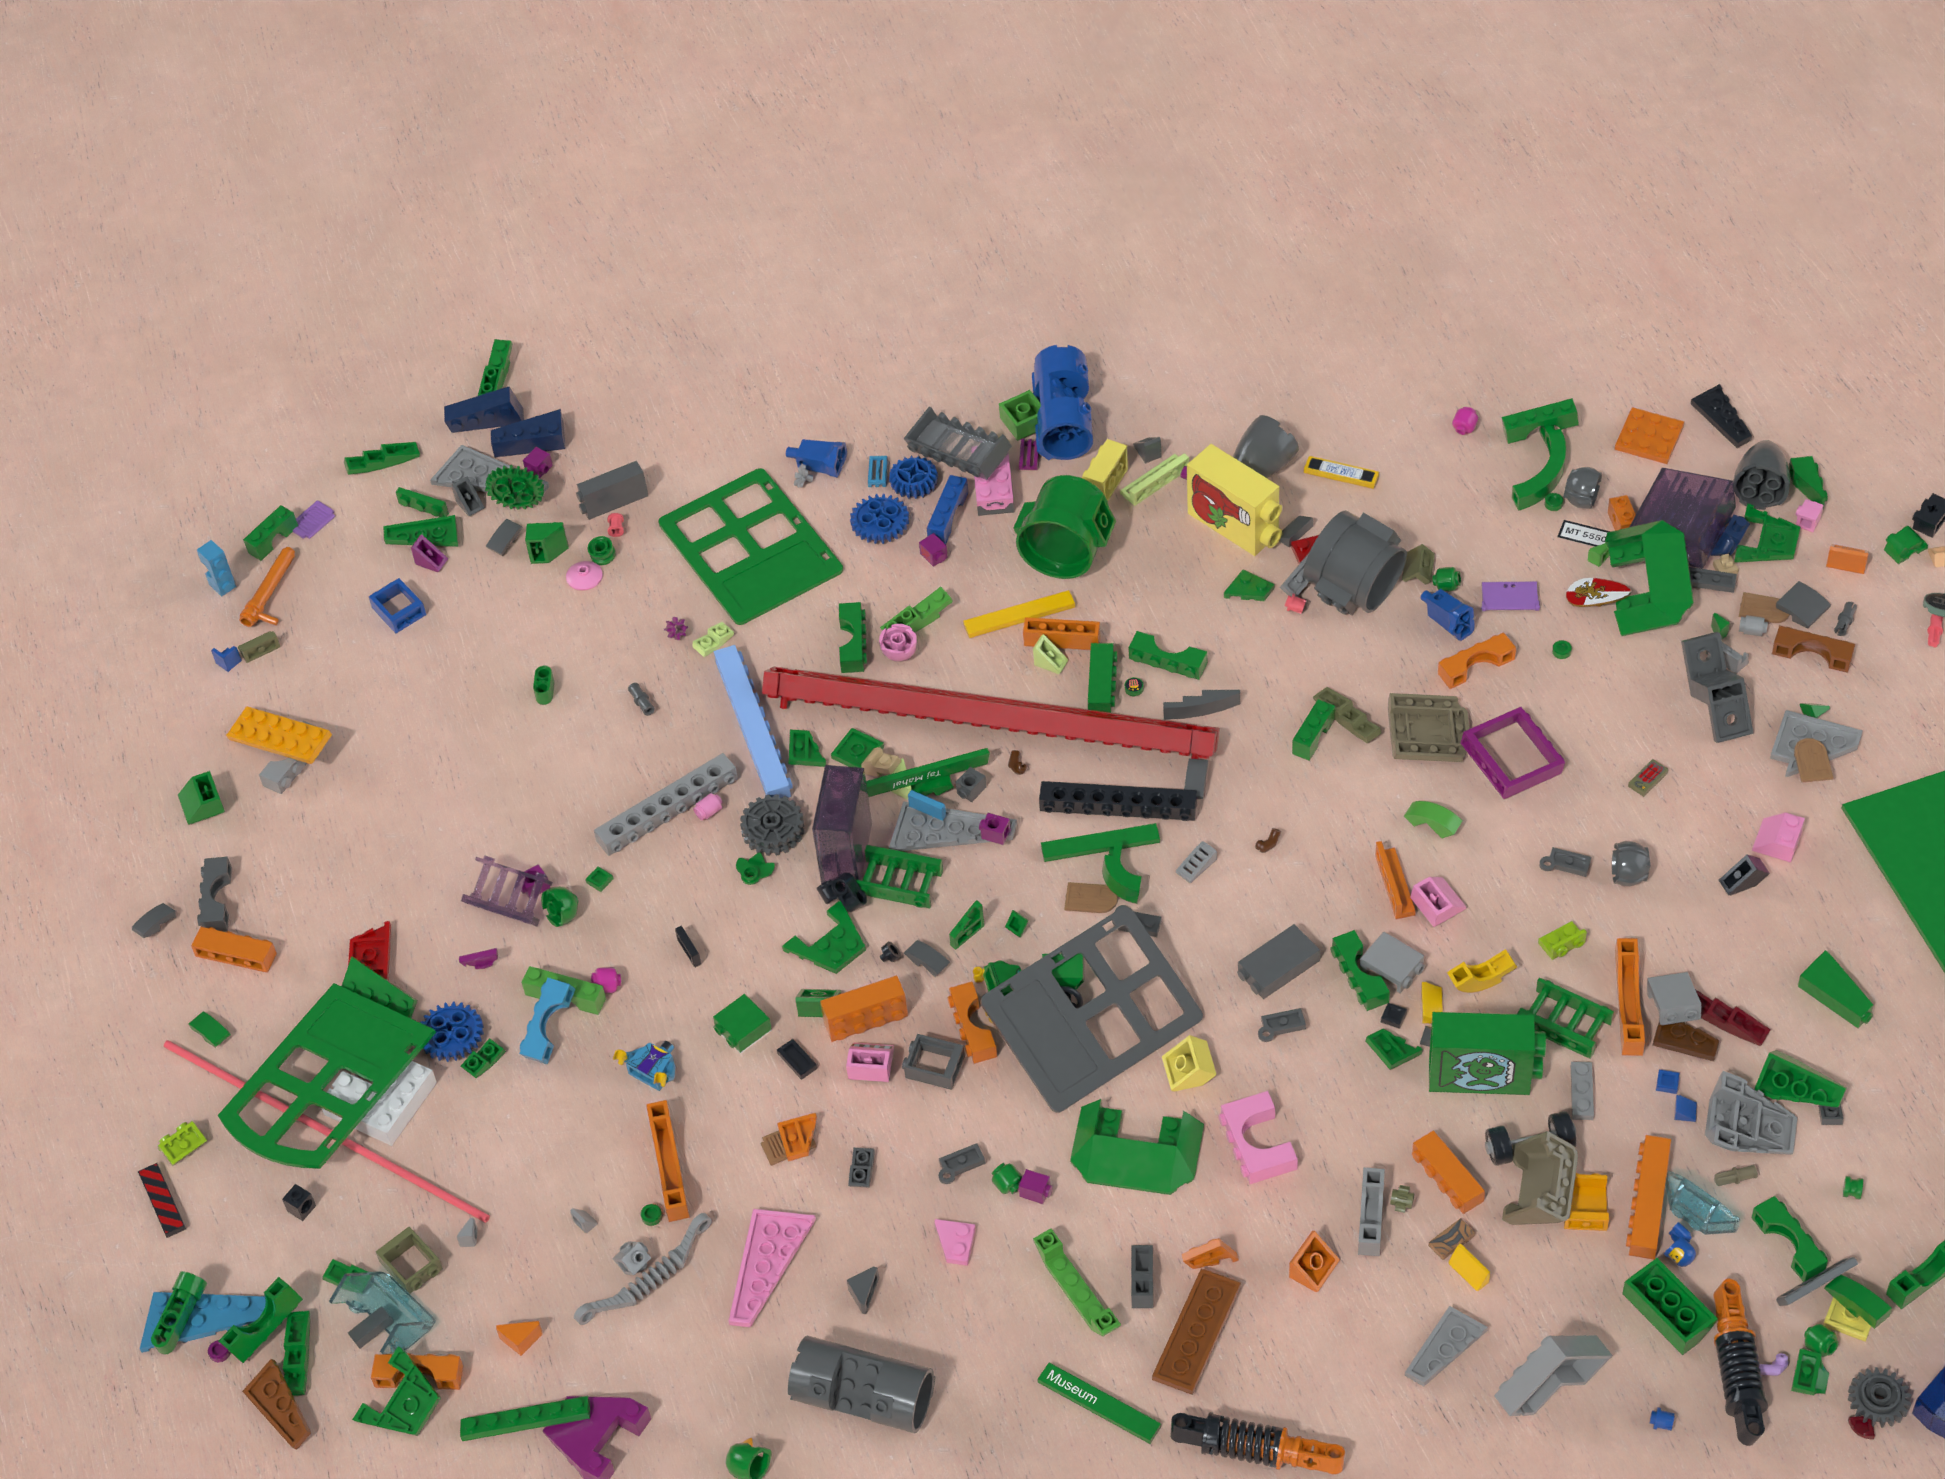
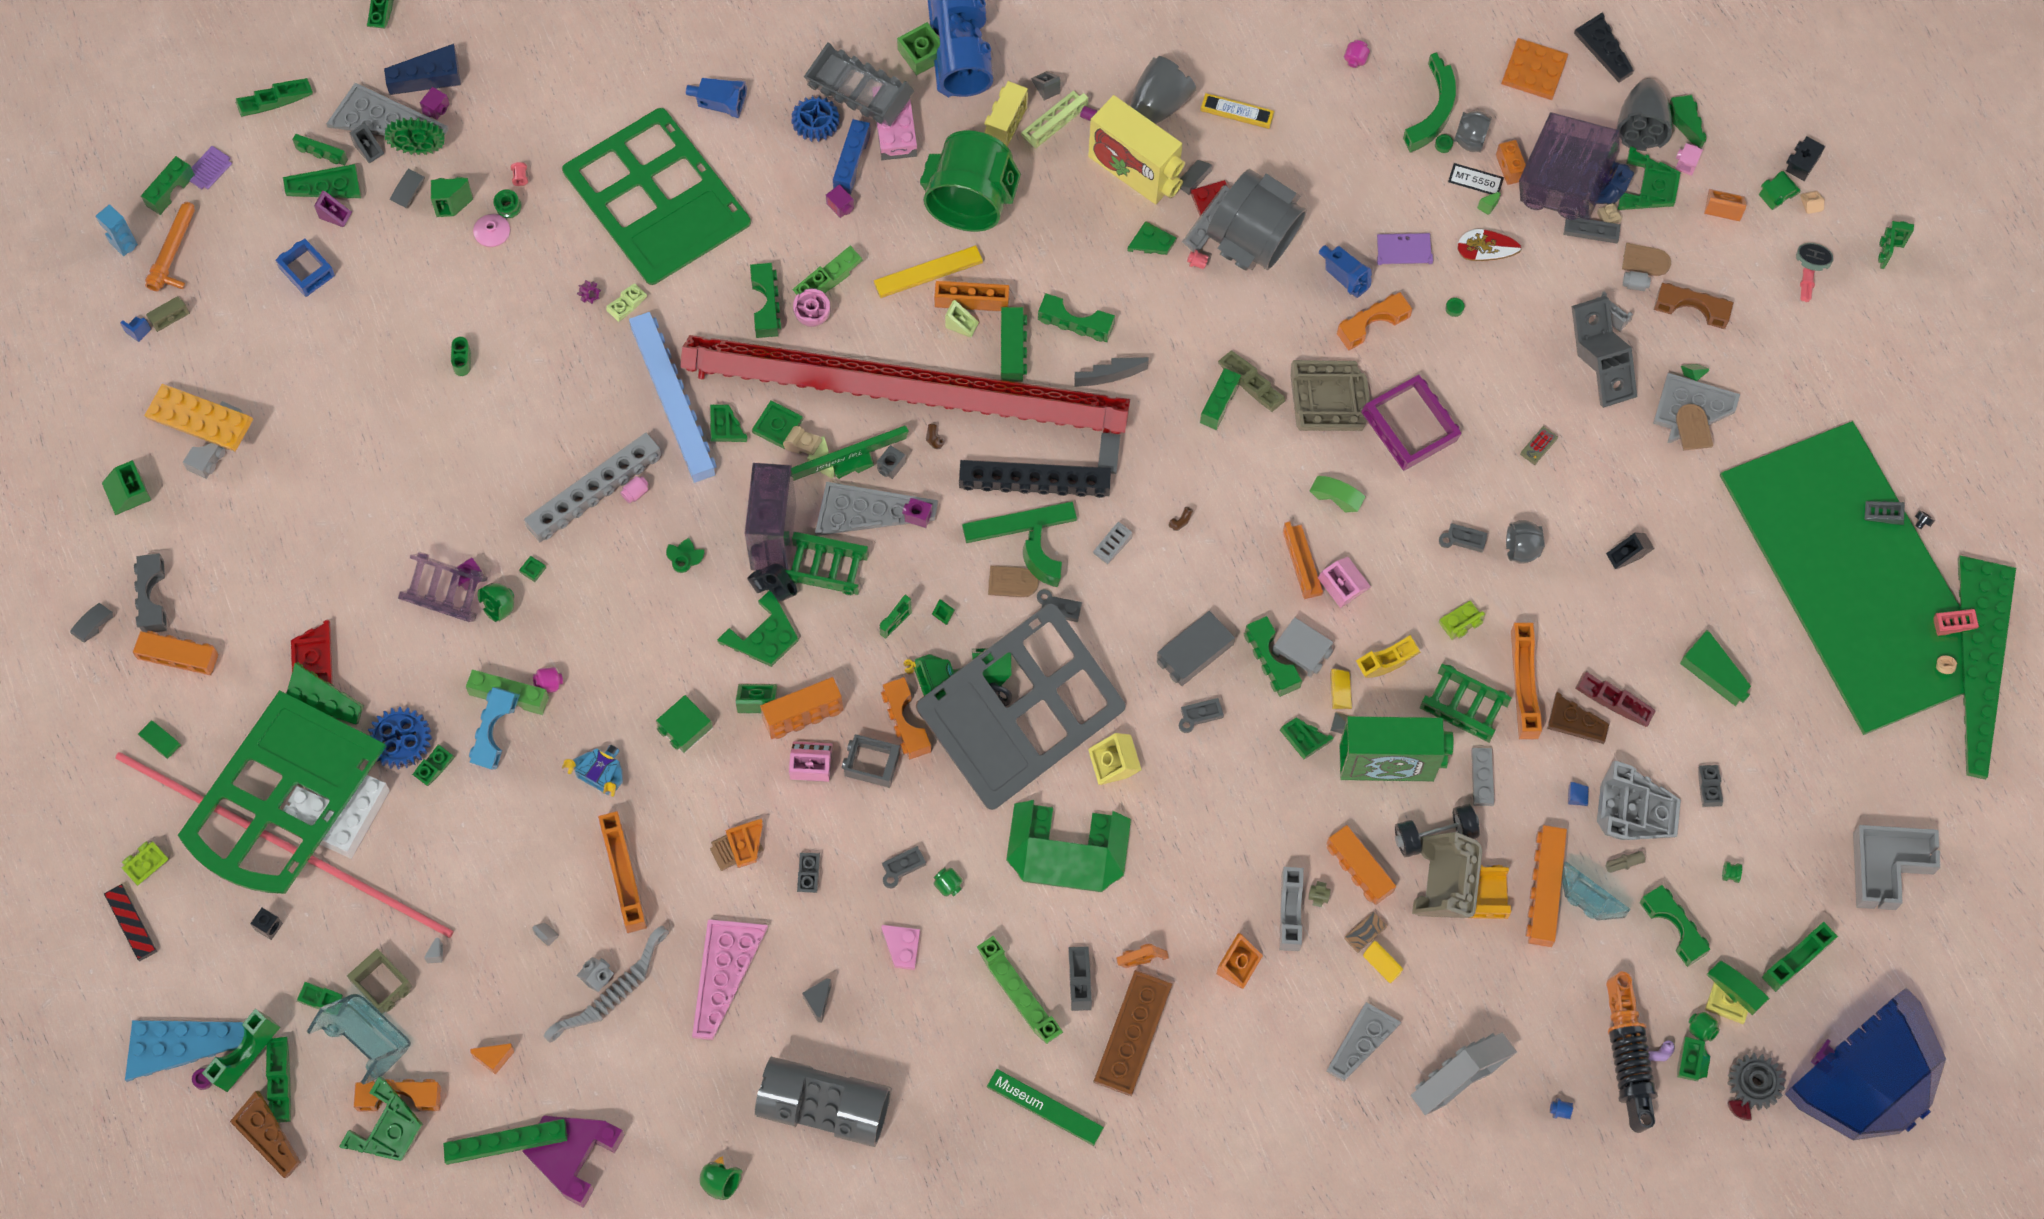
camera: 10 degrees left, 15 degrees up
(187, 1290) = (165, 1022): green beam -> none
(370, 1327) = (347, 1050): dark grey slope -> none
(480, 959) = (421, 660): magenta tile -> none
(484, 411) = (375, 45): dark blue wedge -> none
(612, 490) = (513, 136): dark grey brick -> none
(641, 699) = (559, 370): dark grey pin -> none
(651, 1214) = (610, 926): green tile -> none
(688, 946) = (625, 642): black tile -> none
(772, 825) = (699, 495): dark grey piece -> none
(797, 1059) = (739, 759): black tile -> none
(802, 476) = (703, 118): light grey plant -> none
(877, 481) = (778, 123): dark azure tile -> none
(879, 518) = (784, 166): blue gear -> none
(890, 952) = (822, 645): black tile -> none
(926, 805) = (850, 488): dark azure tile -> none
(927, 956) = (859, 649): dark grey slope -> none
(1029, 443) = (928, 78): magenta tile -> none
(1035, 1186) = (975, 889): magenta brick -> none
(1133, 686) = (1044, 351): tile -> none
(1255, 1162) = (1181, 860): bright pink arch -> none
(1255, 1443) = (1196, 1145): black piece -> none
(1393, 1015) = (1305, 702): black tile -> none
(1419, 564) = (1317, 215): olive panel -> none
(1447, 579) = (1343, 231): green head -> none
(1519, 425) = (1447, 49): green arch -> none
(1667, 573) = (1557, 231): green slope -> none
(1667, 1081) = (1561, 765): blue tile -> none
(1669, 1306) = (1567, 997): green slope -> none
(1674, 998) = (1568, 682): light grey panel -> none
(1681, 1250) = (1576, 940): blue piece -> none
(1720, 625) = (1604, 281): green slope -> none
(1779, 836) = (1662, 507): bright pink slope -> none
(1794, 1081) = (1679, 765): green wedge -> none
(1803, 604) = (1683, 257): dark grey slope -> none
(1816, 1281) = (1699, 968): dark grey tile -> none
(1845, 618) = (1723, 272): dark grey pin -> none

